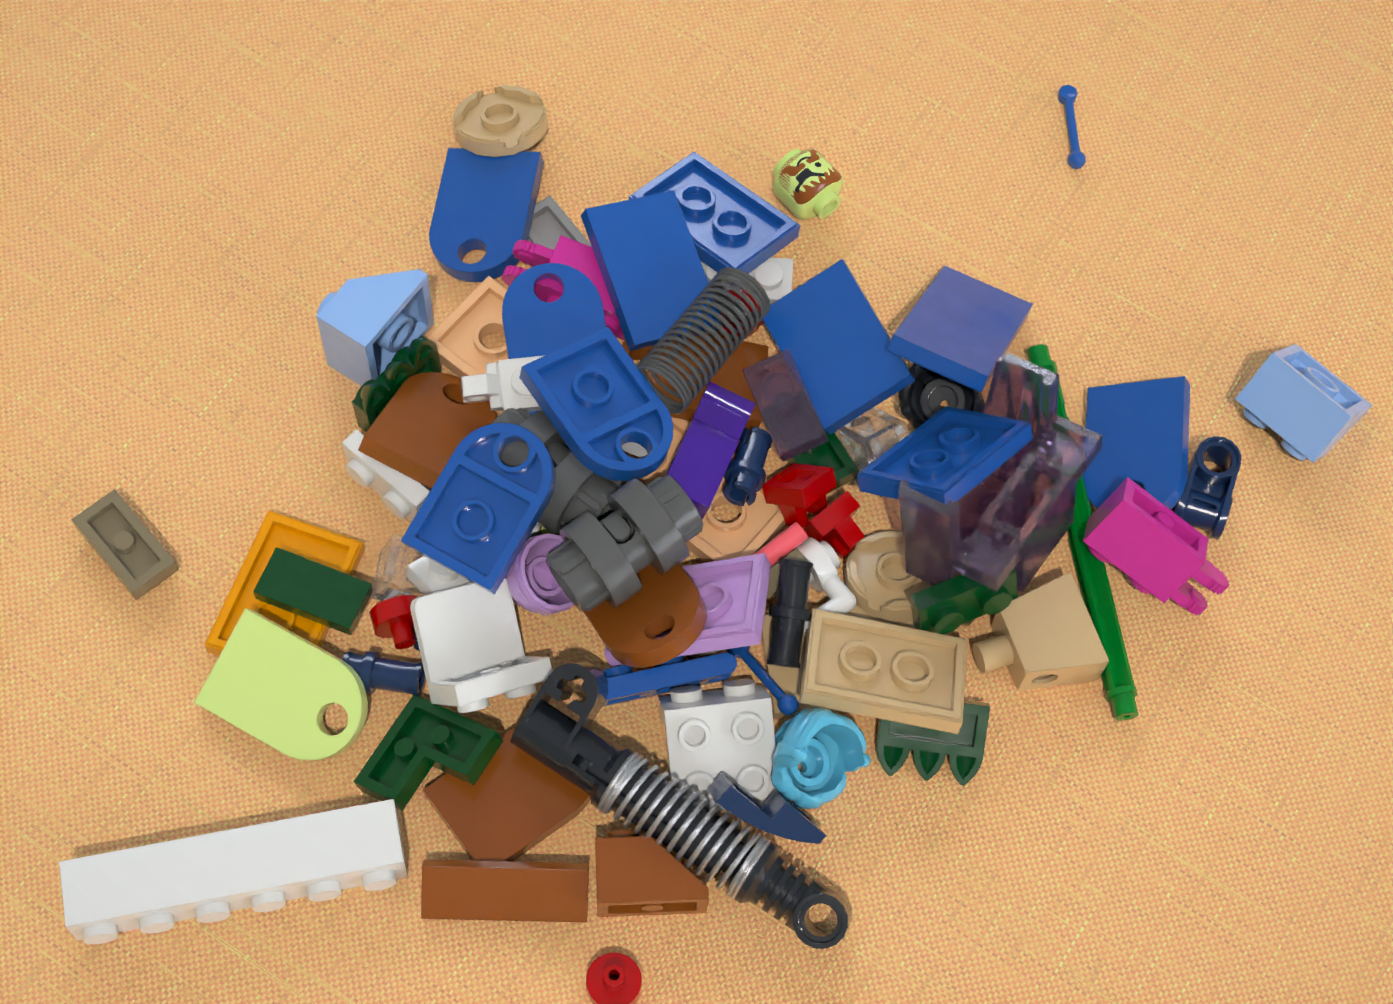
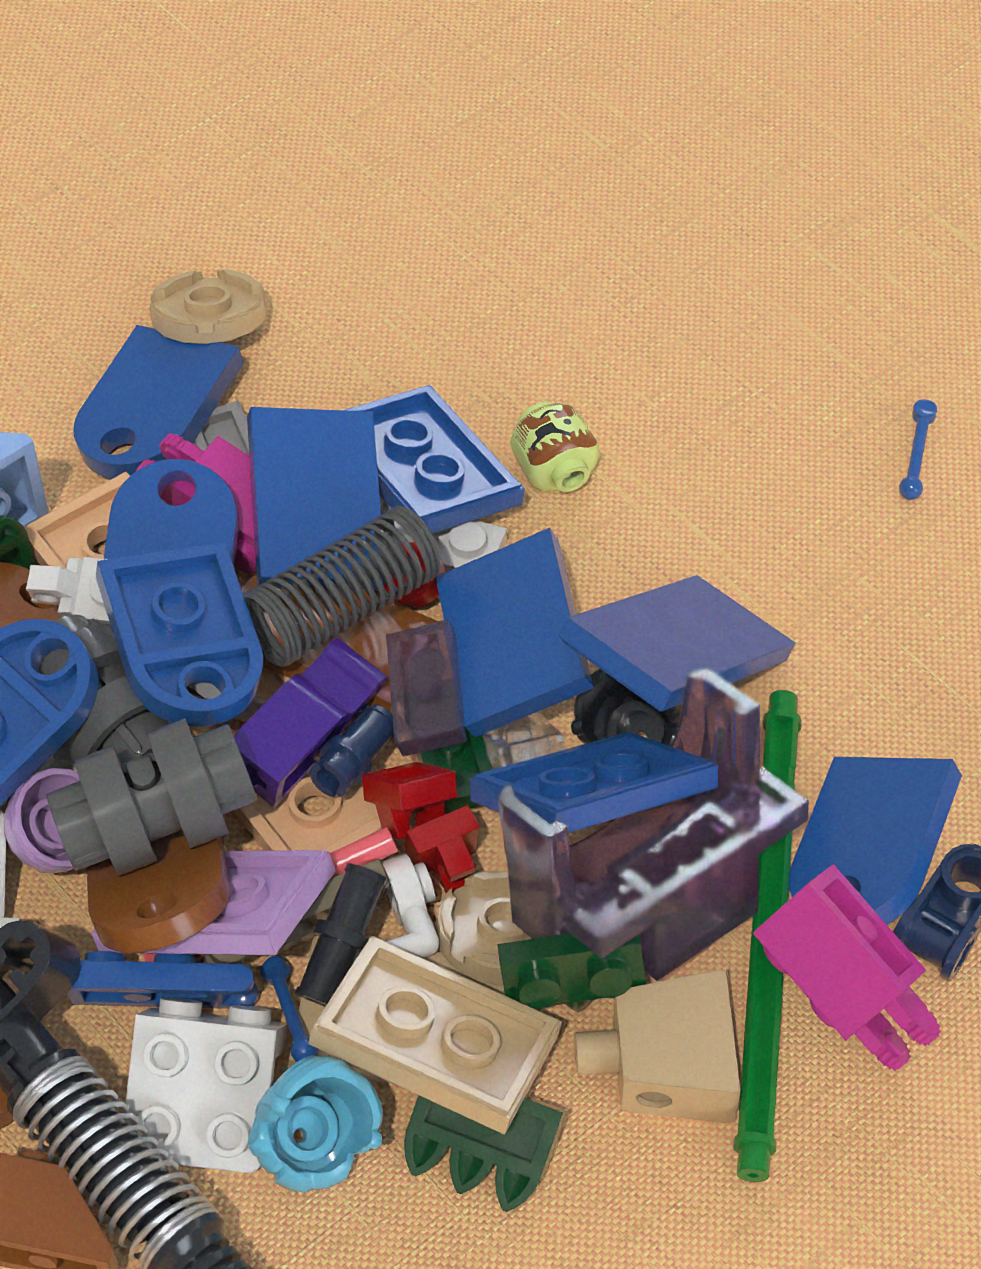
camera: 20 degrees right, 10 degrees down
(774, 816) = (243, 1189): dark blue slope -> none

